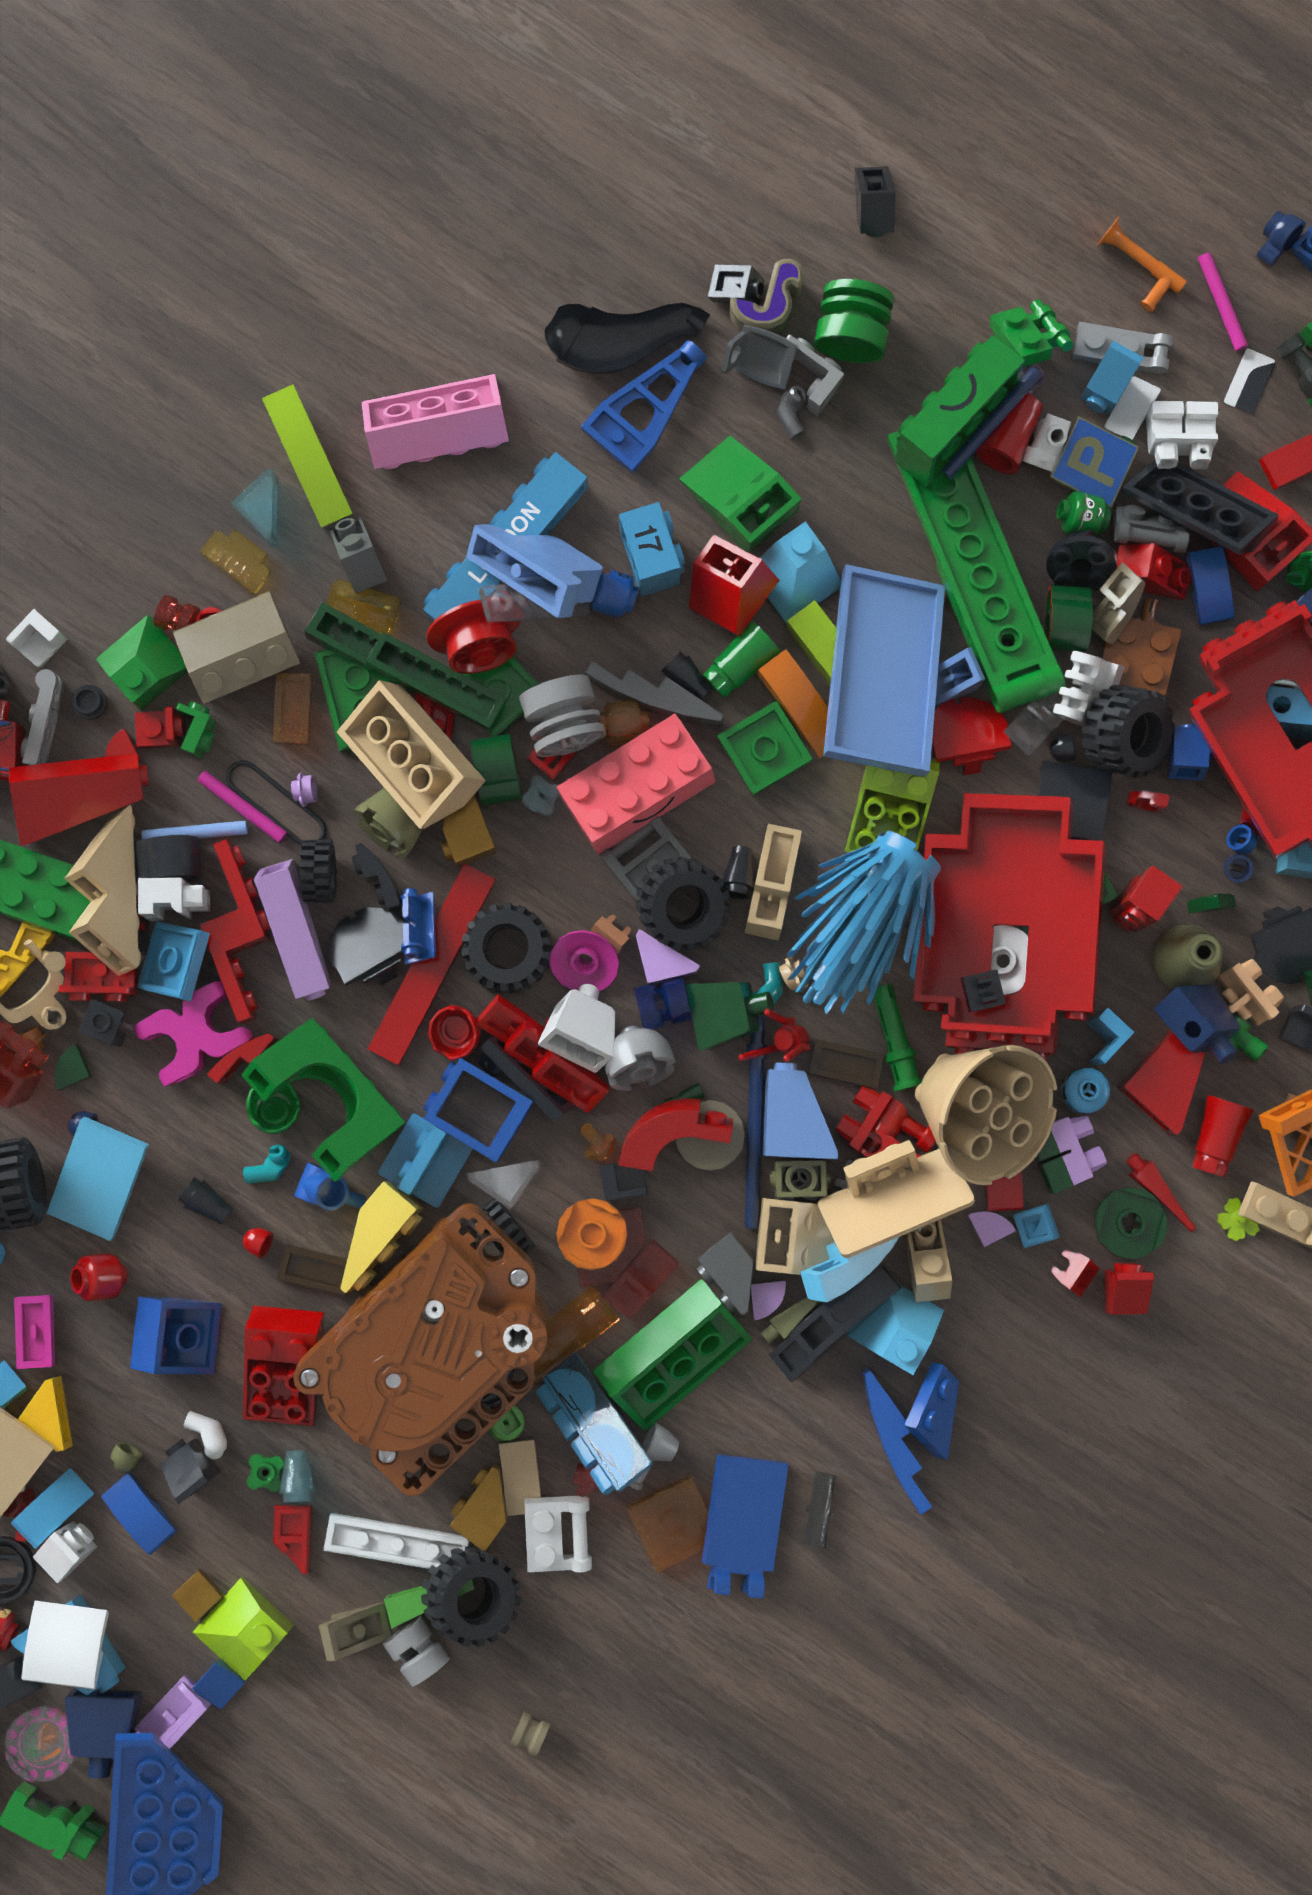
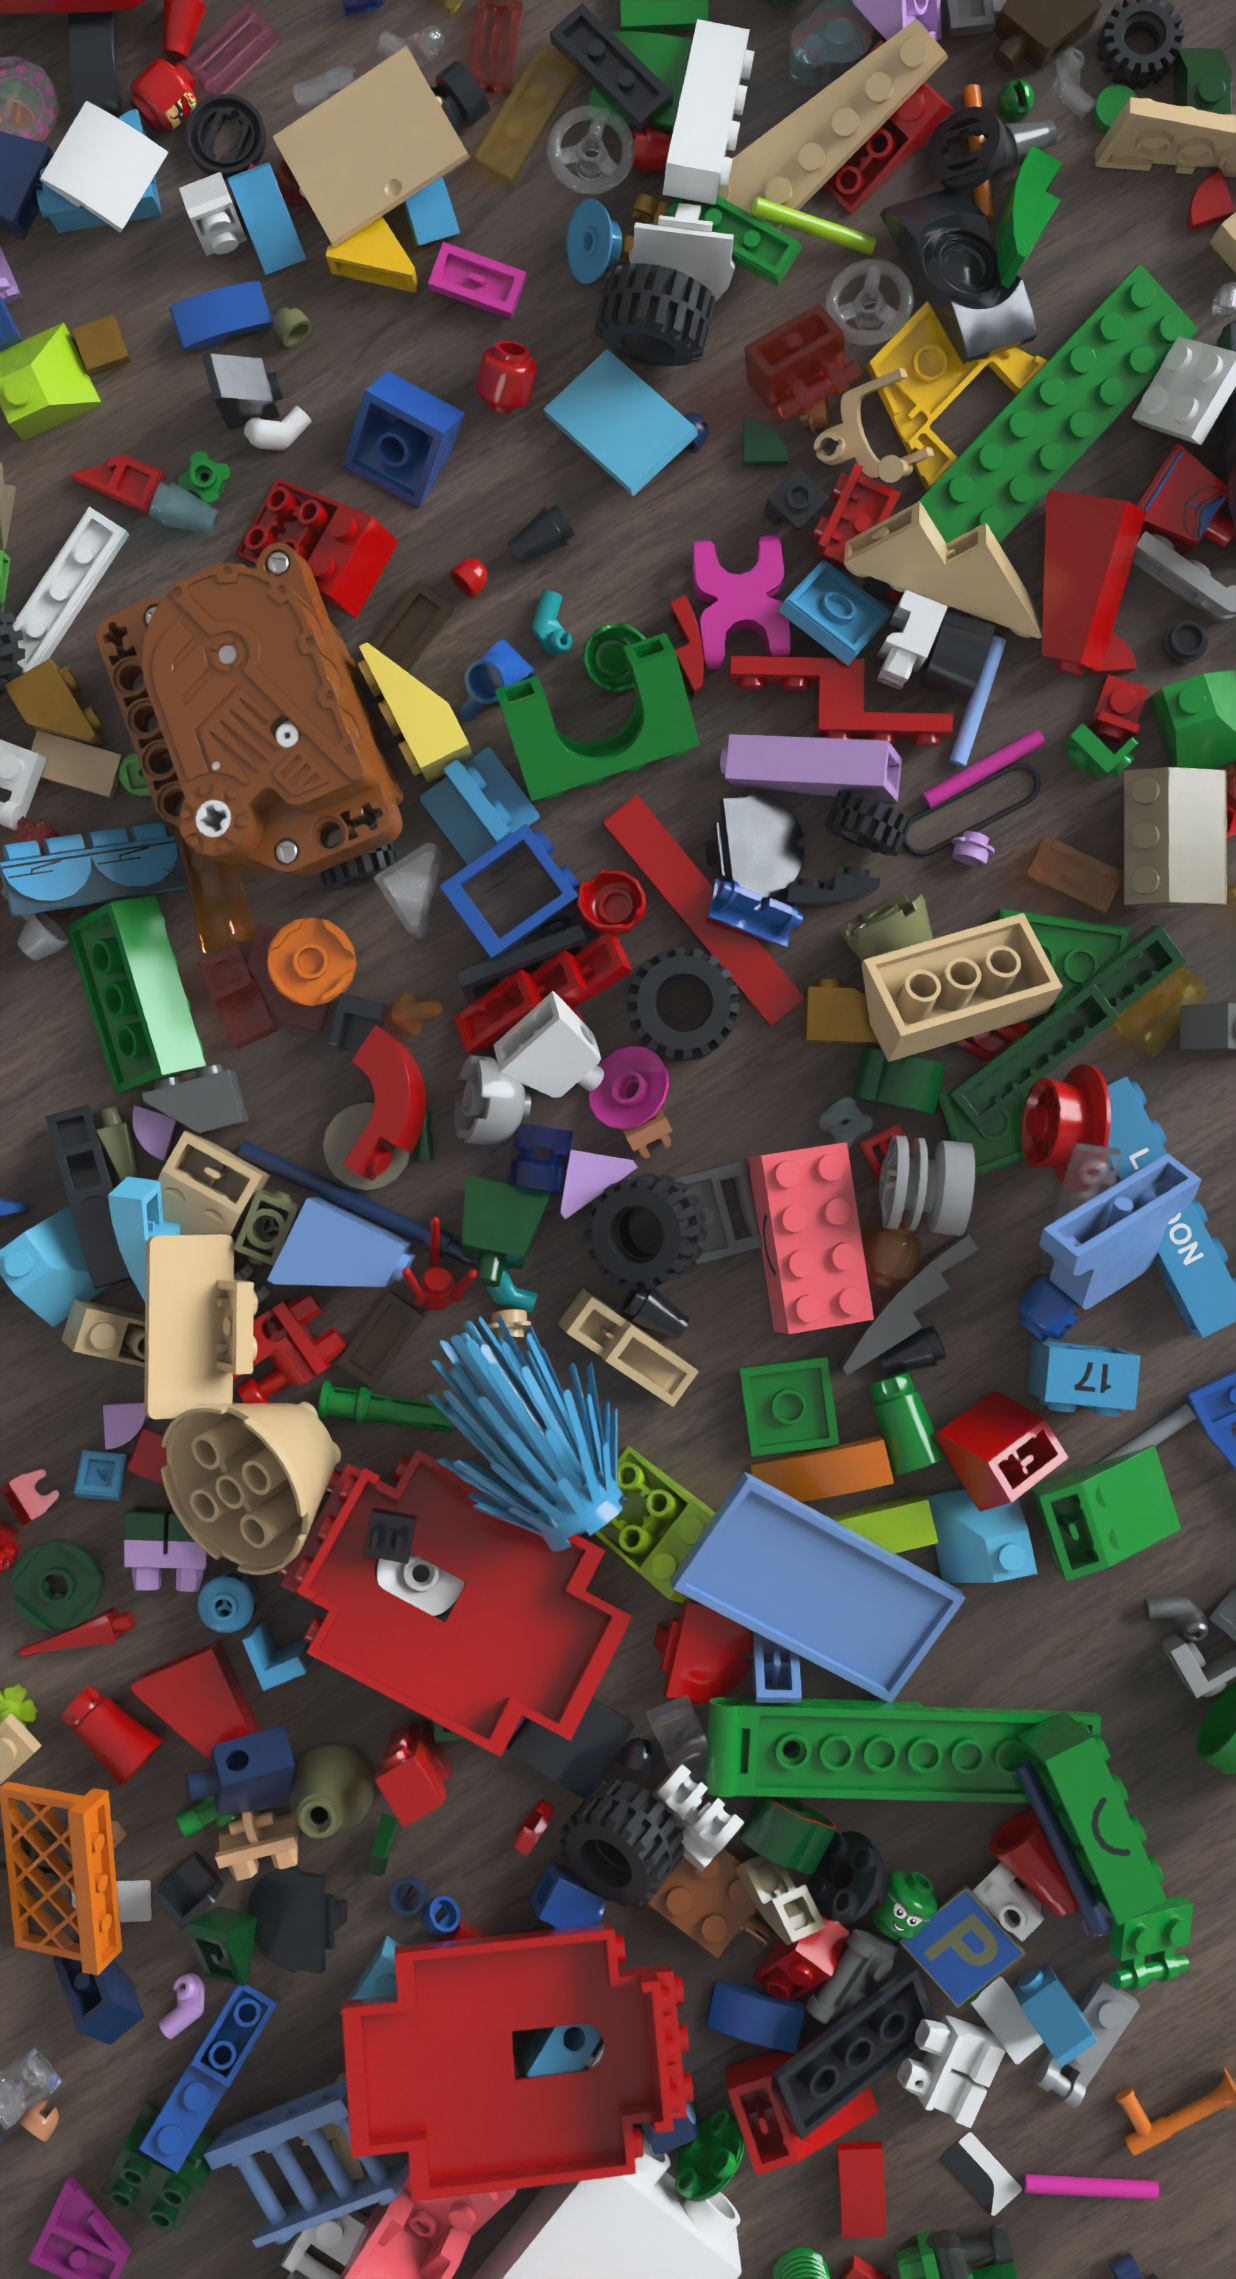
camera: 105 degrees right, 5 degrees up
(668, 480) = (1157, 1432): none -> light grey bar

